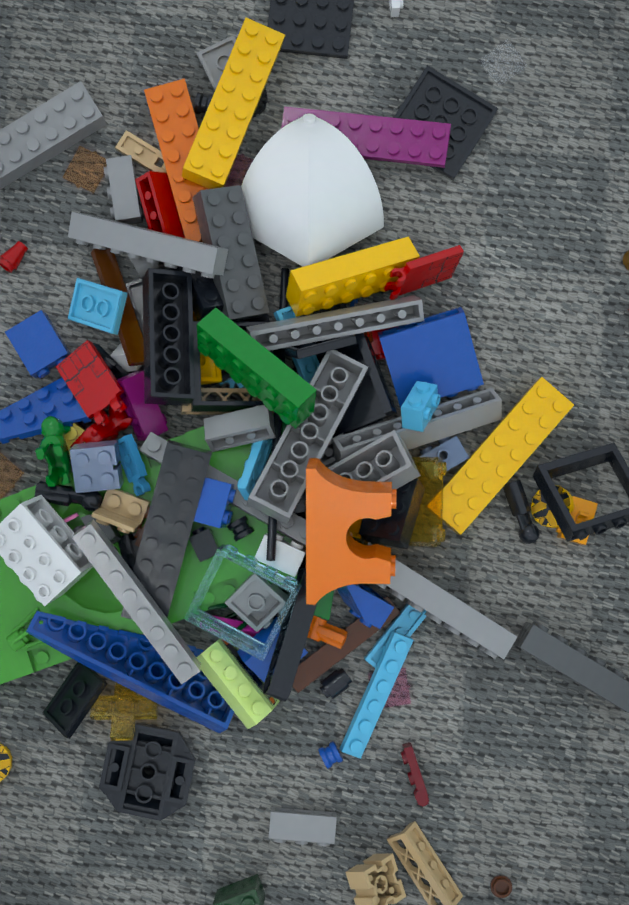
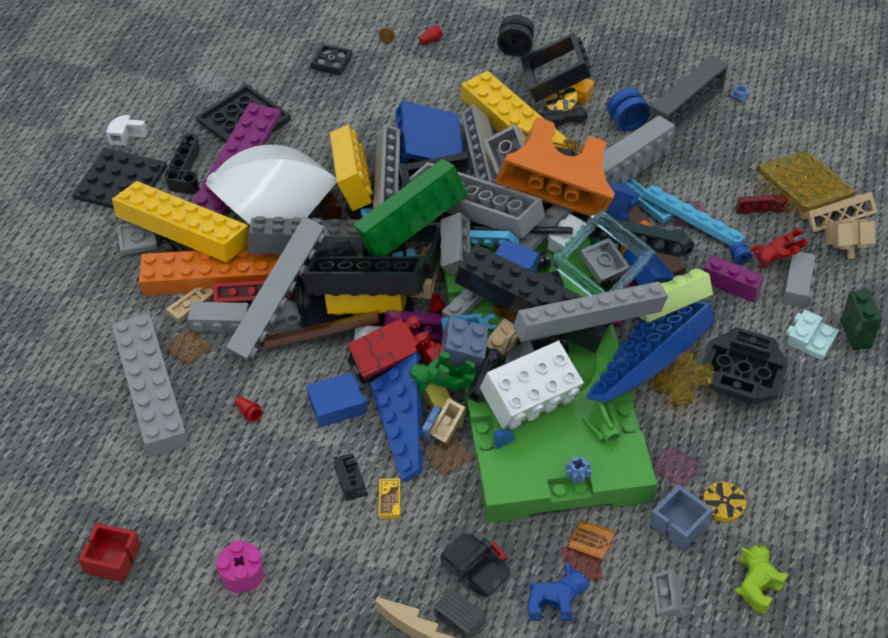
camera: 80 degrees left, 35 degrees down
(21, 449) = (429, 422): none -> medium blue piece
(24, 466) = (449, 419): none -> tan slope
(26, 709) = (676, 466): none -> clear pink piece
(74, 699) = (671, 417): black tile -> none
(97, 306) = (316, 343): medium azure tile -> none
(184, 423) = (436, 304): none -> red cone
(224, 843) = (811, 335): none -> light aqua plate
(286, 748) = (734, 278): none -> magenta brick
(339, 802) = (779, 248): none -> red animal
(349, 79) = (179, 174): none -> black beam
(419, 406) = (467, 139): medium azure brick -> none
(424, 271) = (361, 131): red tile -> none
(459, 826) = (805, 181): none -> clear yellow plate
(501, 886) = (855, 170): reddish brown plate -> none
(539, 594) = (628, 109): none -> blue wheel
(570, 201) = (331, 59): none -> black piece
(620, 737) = (740, 92): none -> medium blue plate

